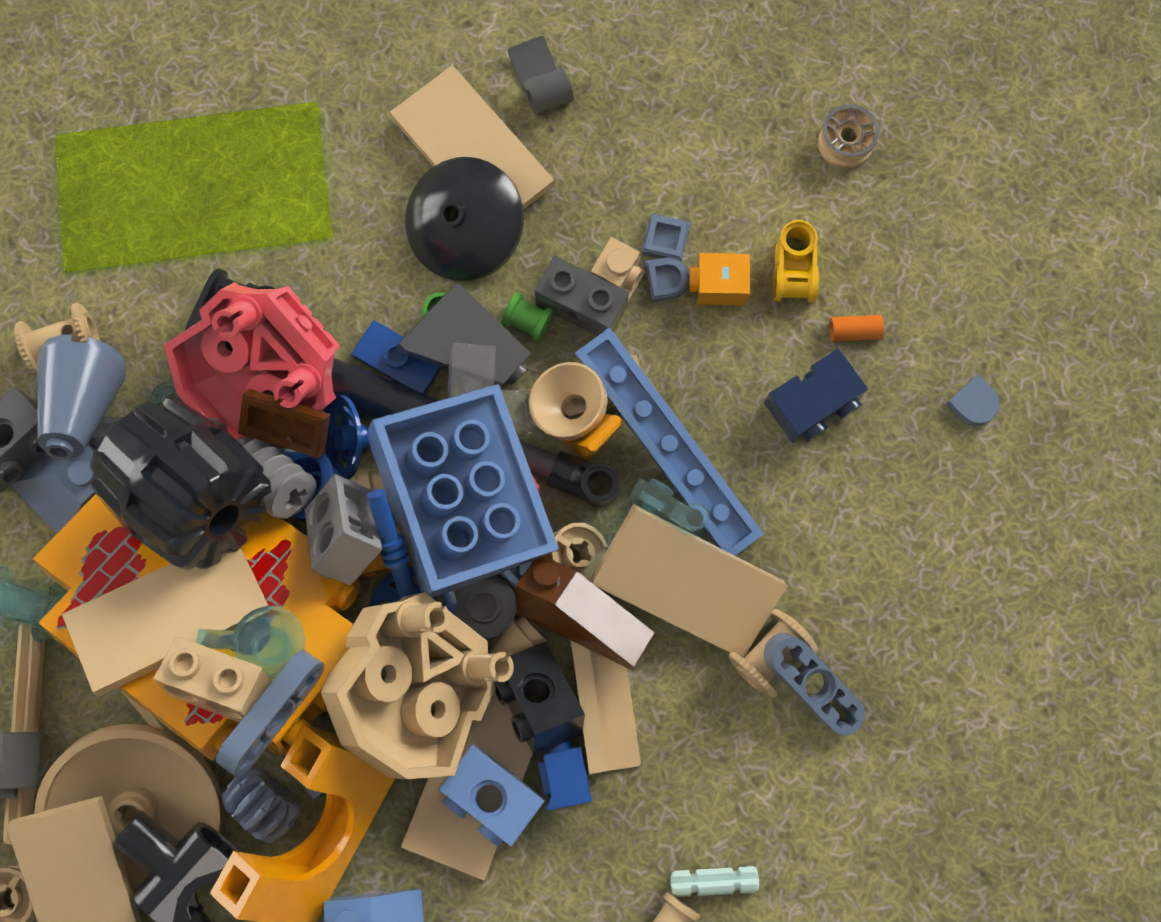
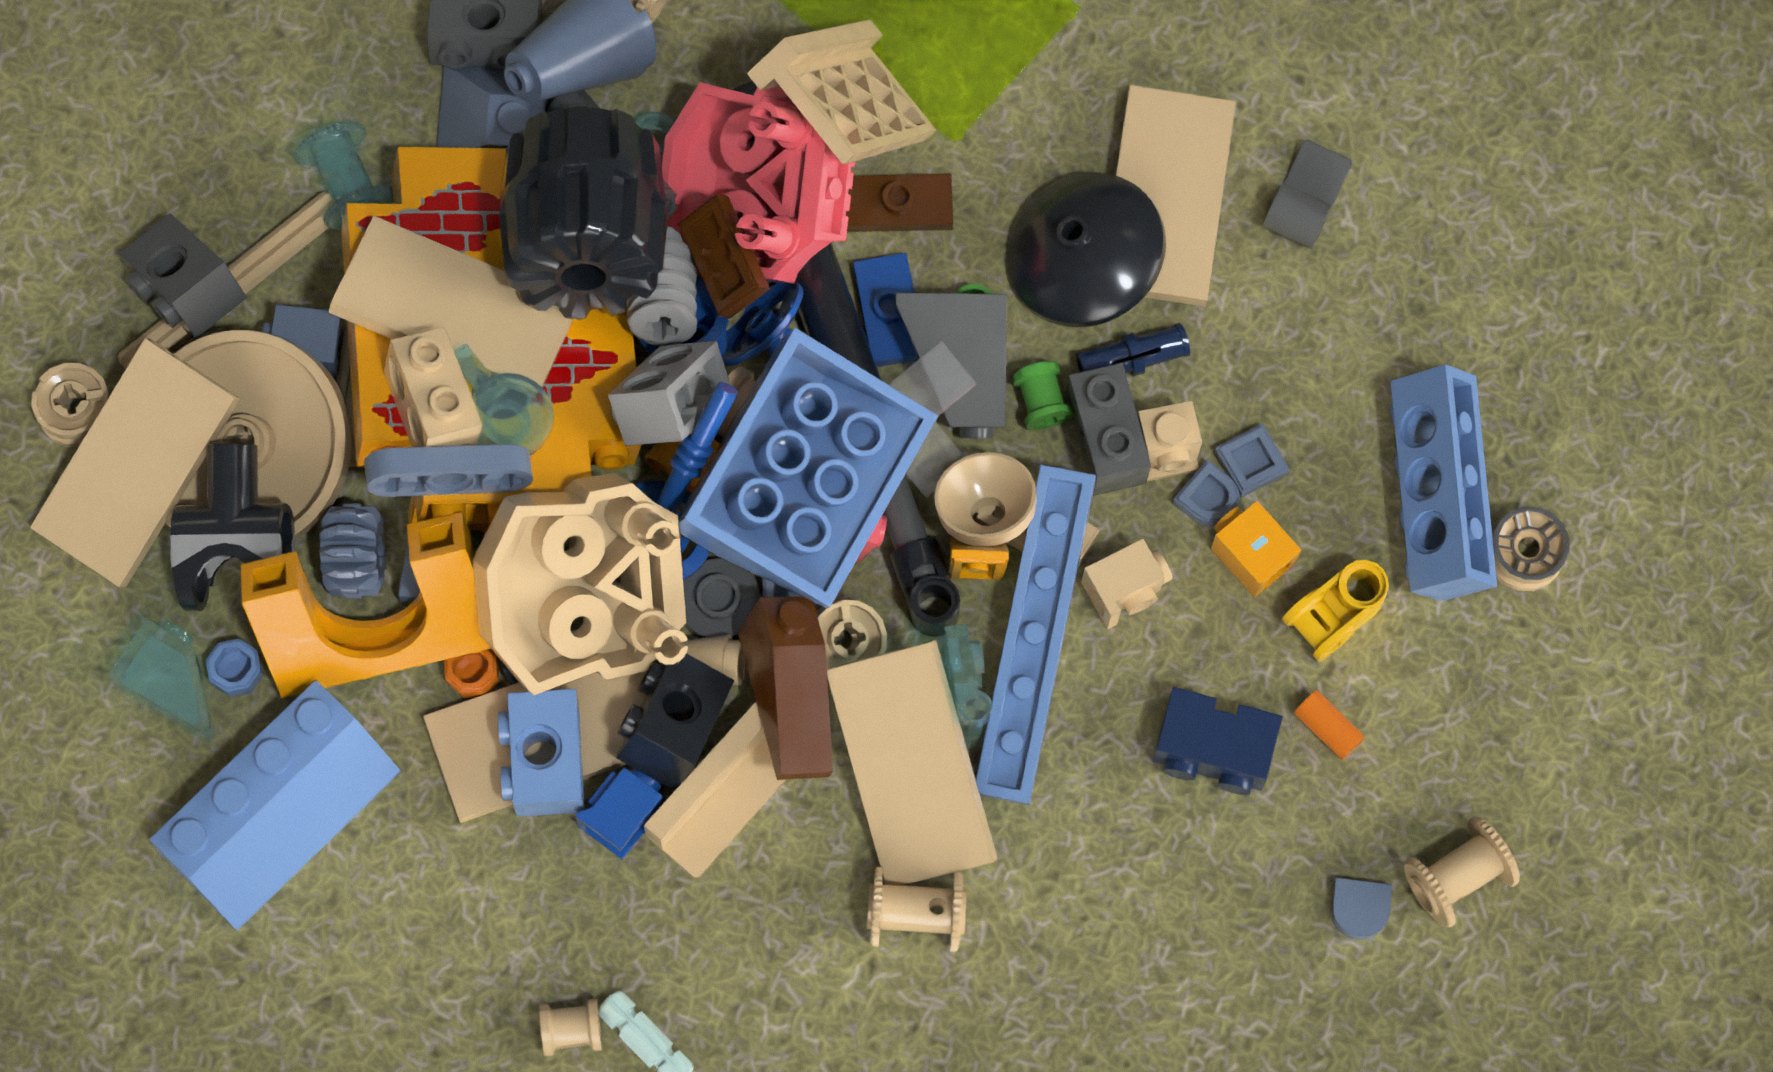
camera: 45 degrees right, 5 degrees down
(99, 713) = (312, 330): none -> sand blue brick
(247, 267) = (844, 90): none -> tan fence
(342, 294) = (900, 203): none -> reddish brown plate
(402, 796) = (473, 673): none -> orange tile
(547, 245) = (1161, 347): none -> dark blue pin
(679, 366) = (1125, 581): none -> tan brick
(796, 680) = (933, 1012): sand blue beam -> none
(830, 170) = (1447, 404): none -> medium blue brick
(1005, 329) = (1462, 871): none -> tan hose

